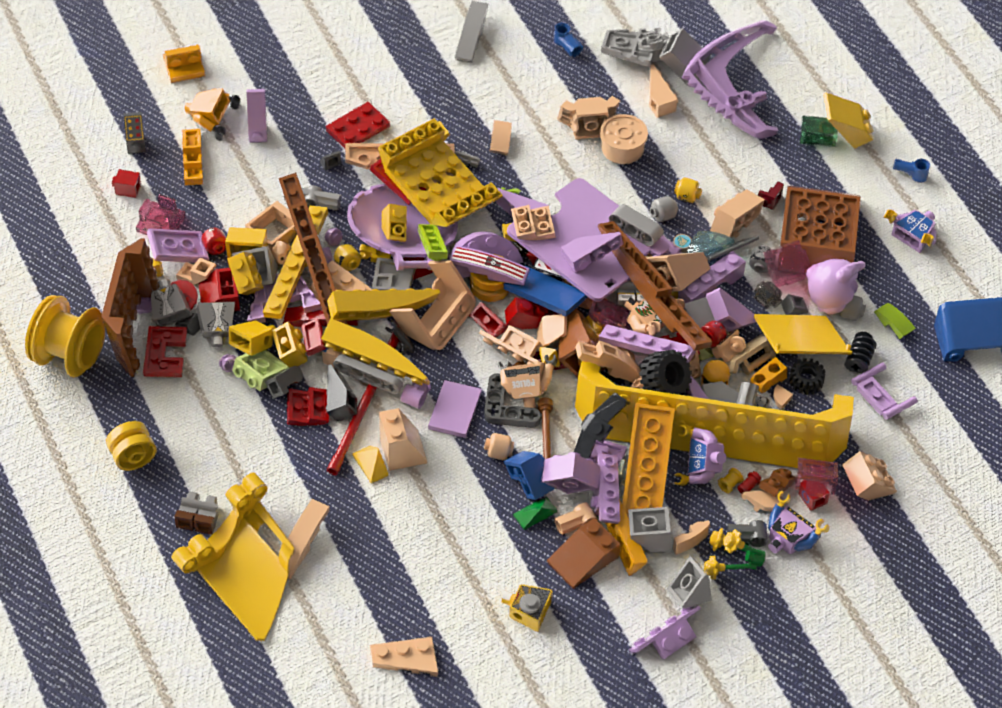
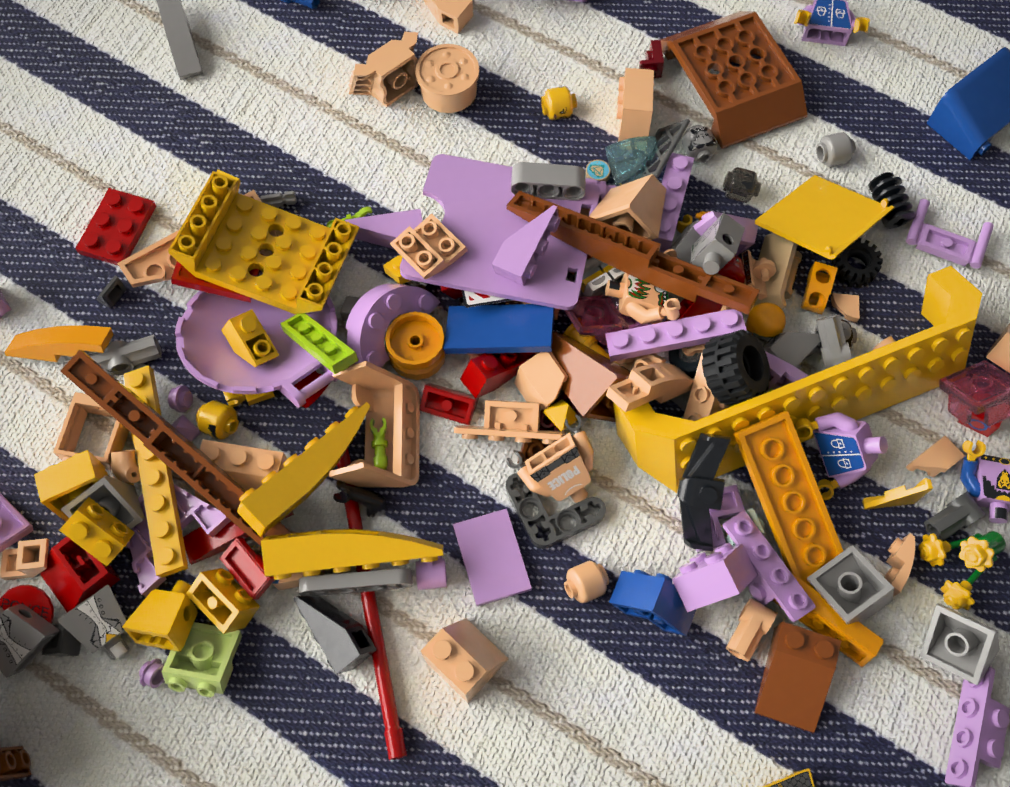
camera: 30 degrees left, 15 degrees up
(155, 361) = (46, 734): red plate -> none
(213, 240) = (22, 496): red head -> none
(278, 168) = (52, 342): none -> light orange slope
(278, 384) = (246, 660): dark grey leg -> none
(307, 407) = (301, 675): red slope -> none
(371, 463) = (439, 710): yellow slope -> none
(387, 276) = (289, 422): light grey plate -> none
(432, 317) = (379, 445): none -> lime piece
(489, 264) = (413, 335): slope -> none
(500, 137) = (301, 150): light nougat slope -> none
(535, 513) = (691, 650): green slope -> none
(545, 406) = (600, 487): dark orange piece -> none
(664, 209) = (550, 140): light grey head -> none
(702, 311) = (711, 250): none -> light grey torso
(721, 504) = (899, 496): none -> yellow tile
(730, 480) = (883, 462): yellow bush -> none
(750, 482) = (902, 444): red pin -> none
(779, 481) = (933, 424): dark orange slope -> none
(787, 263) = (740, 135): clear pink panel -> none
(794, 305) = (772, 182): dark grey slope -> none
(833, 284) = (810, 132): lavender piece -> none
(896, 319) = (884, 137): lime slope -> none

